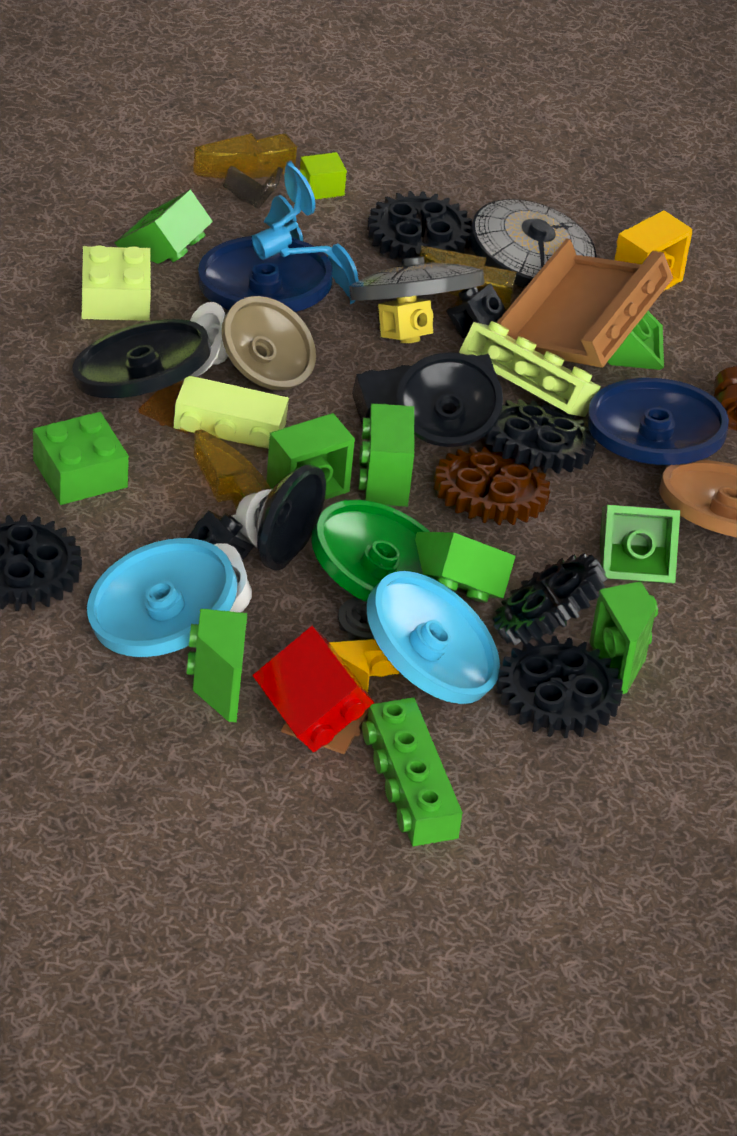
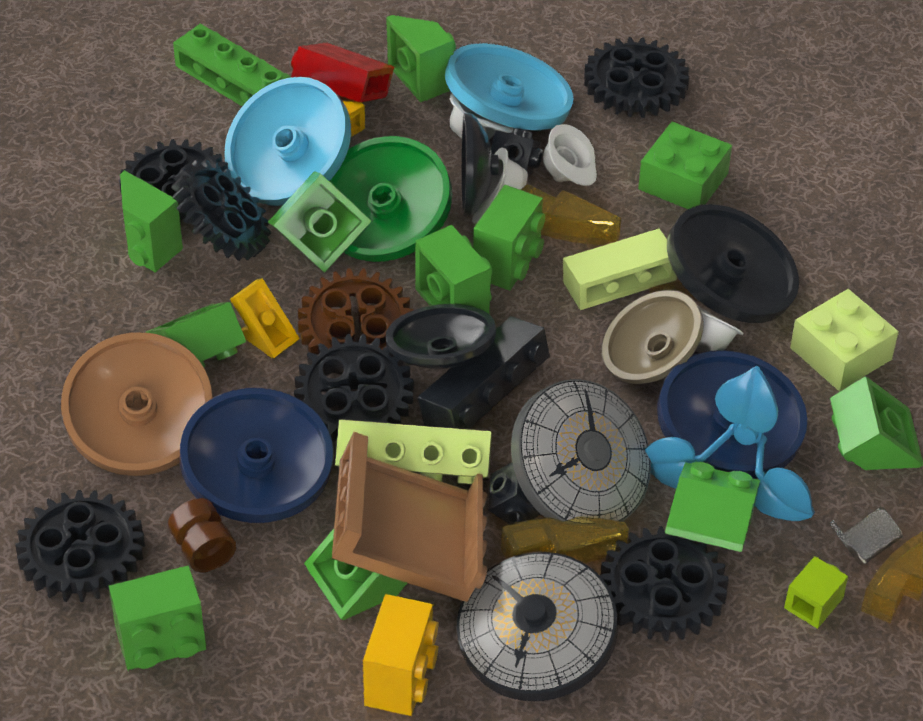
camera: 150 degrees right, 5 degrees up
(178, 509) = (570, 156): none -> white piece
(349, 225) = (713, 506): none -> bright green slope
(572, 527) = (264, 319): none -> yellow slope

